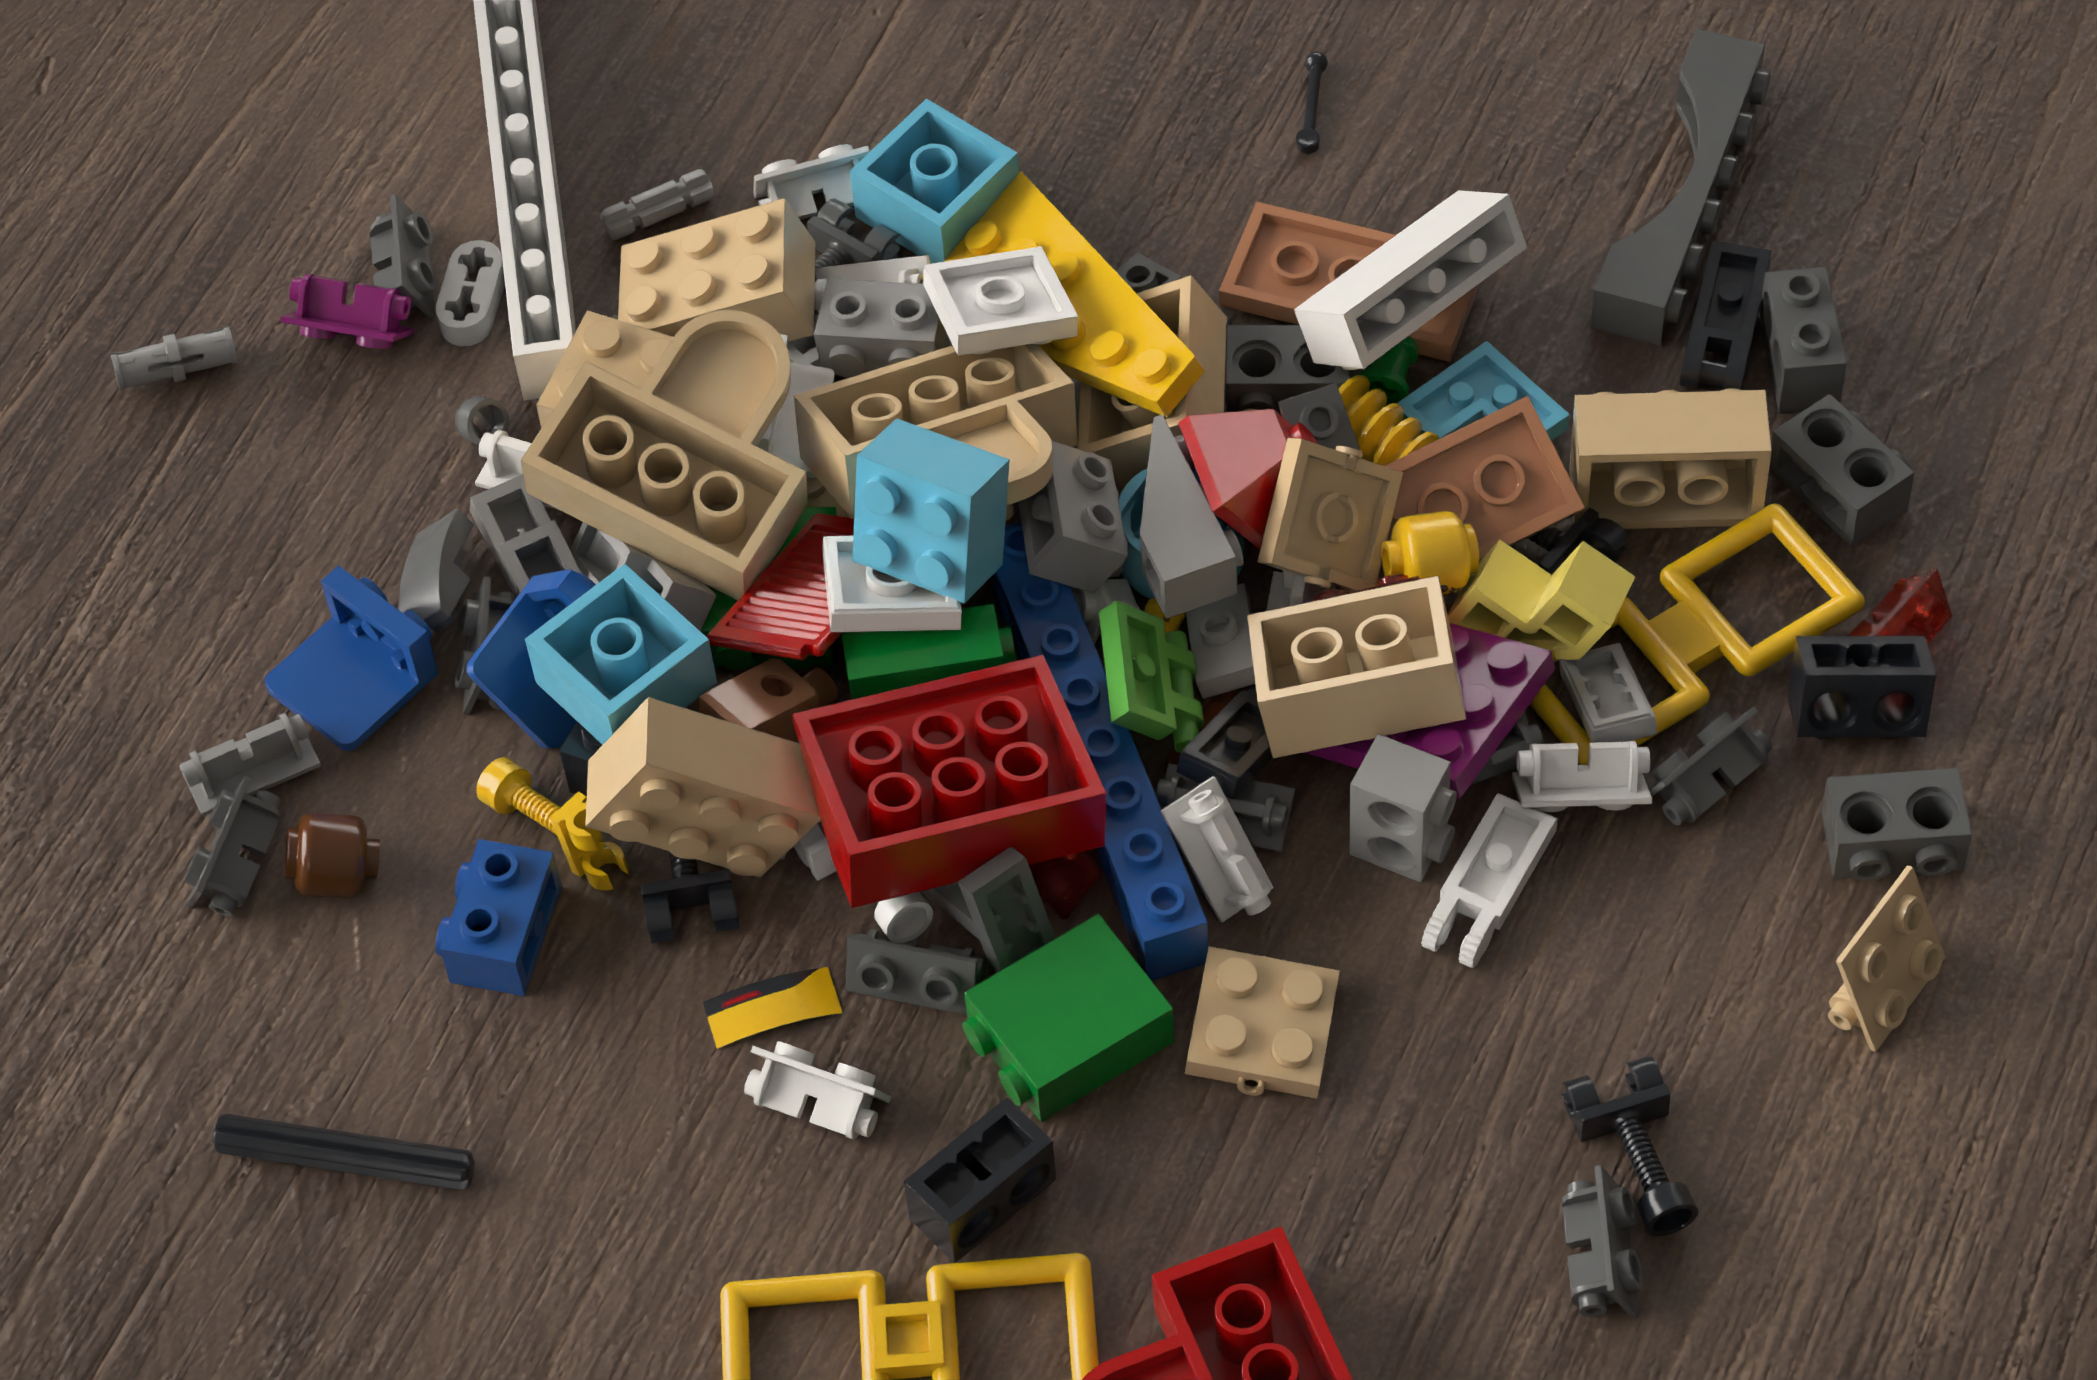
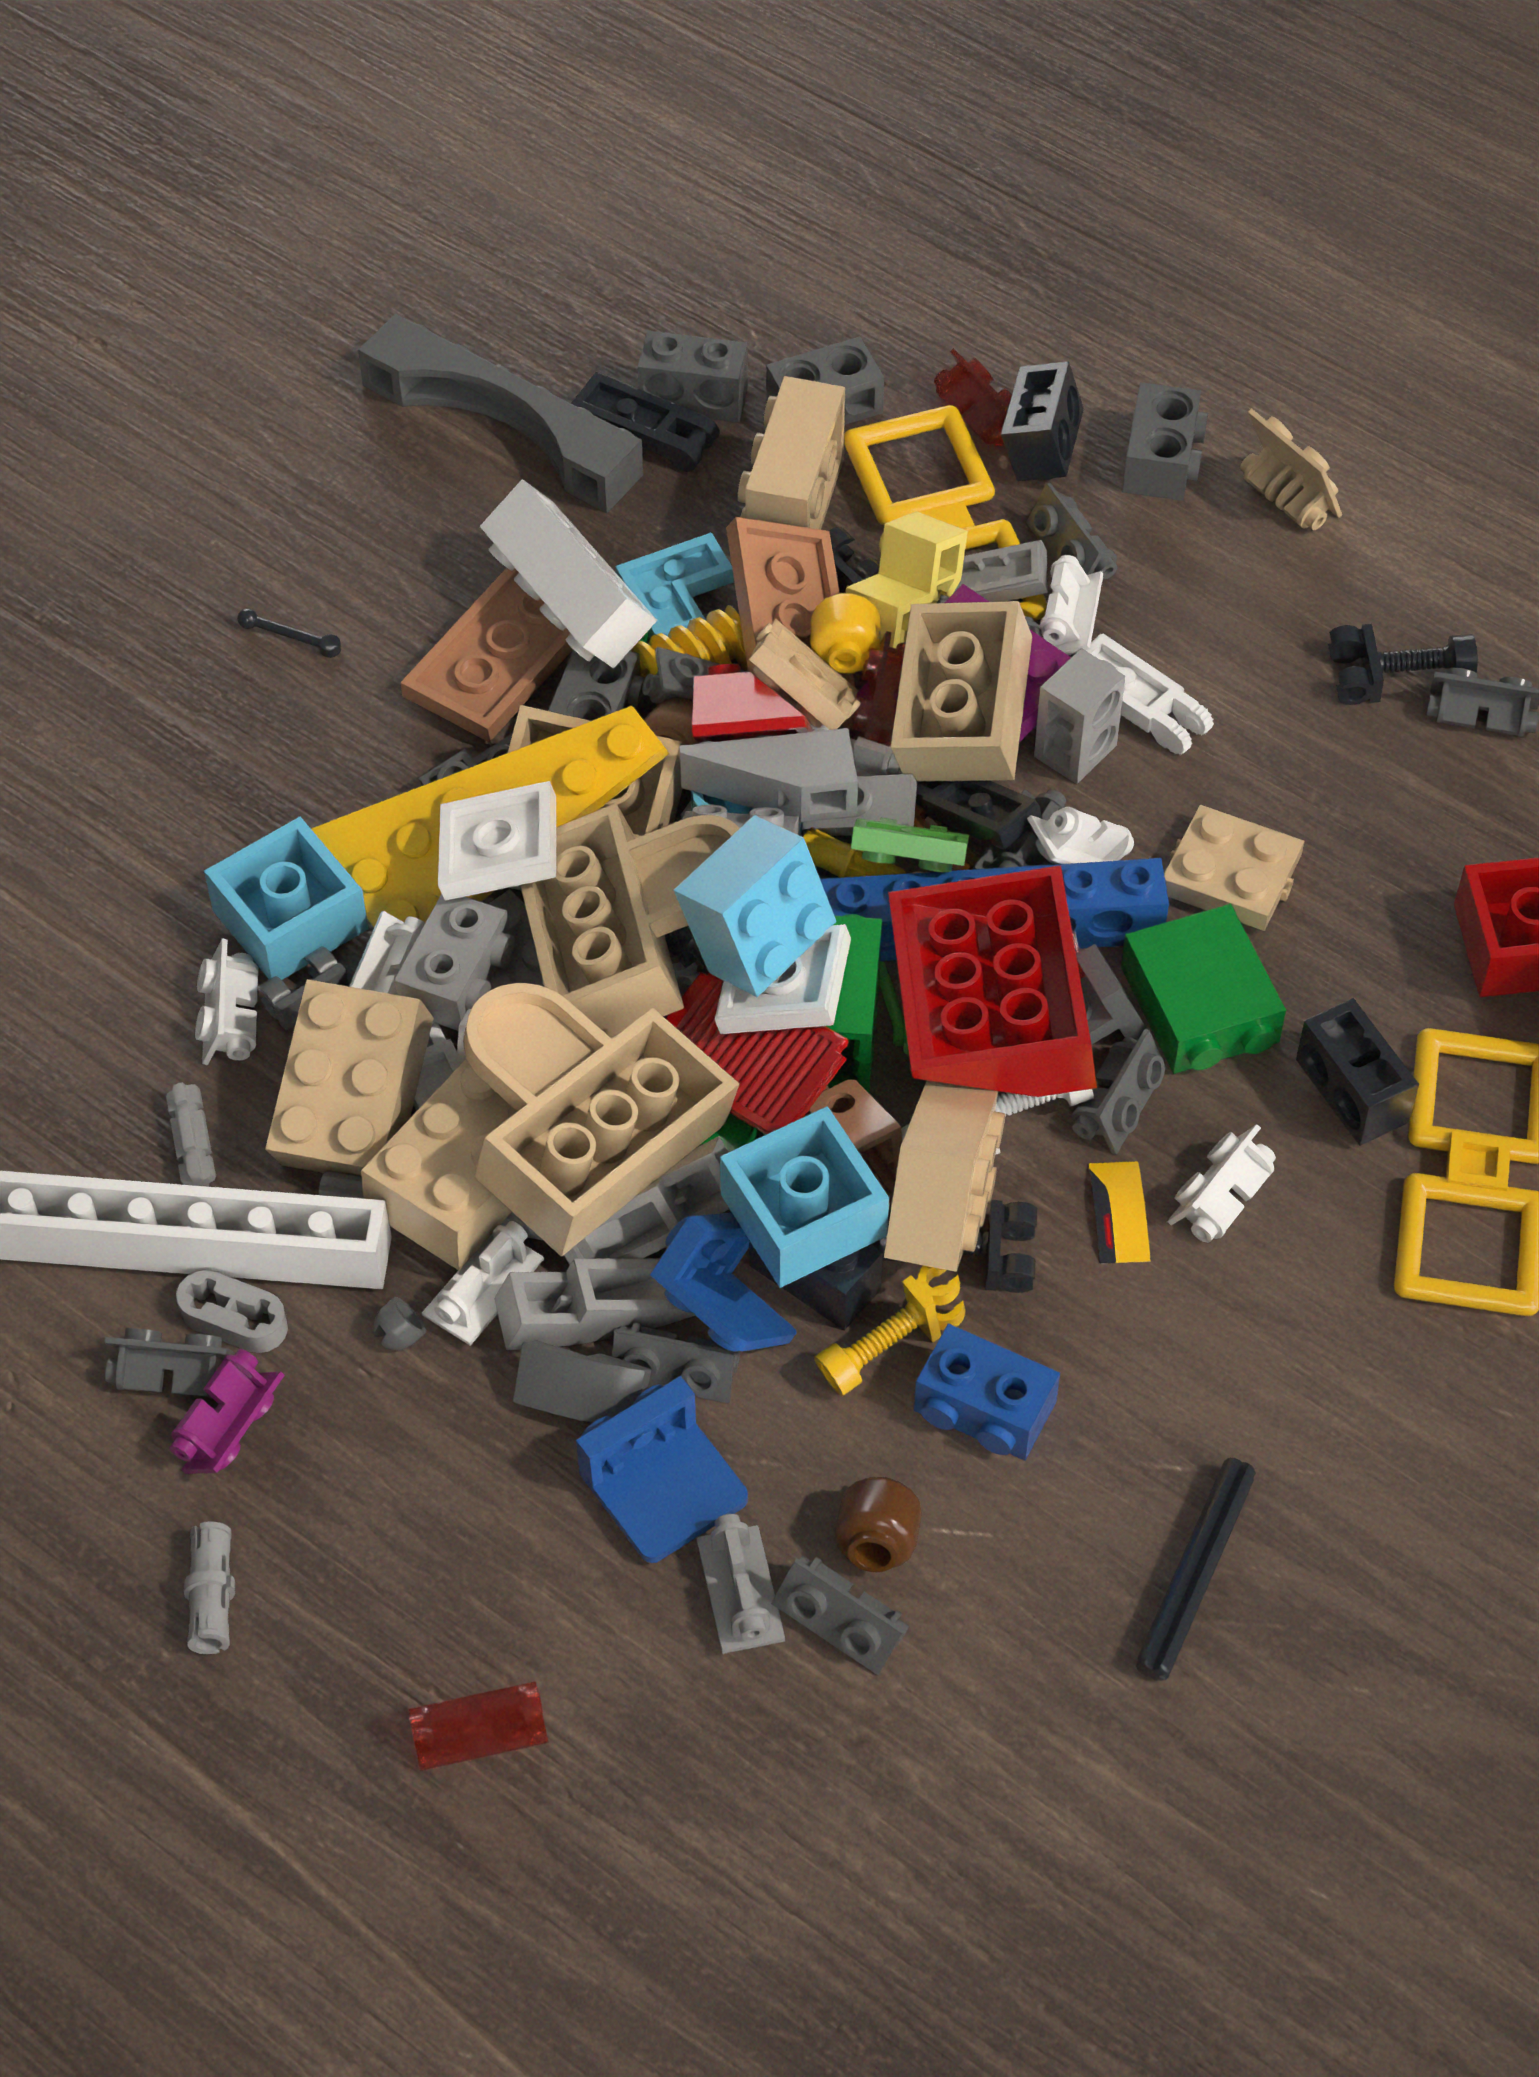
camera: 80 degrees left, 0 degrees up
(71, 592) = (478, 1726): none -> clear red hinge

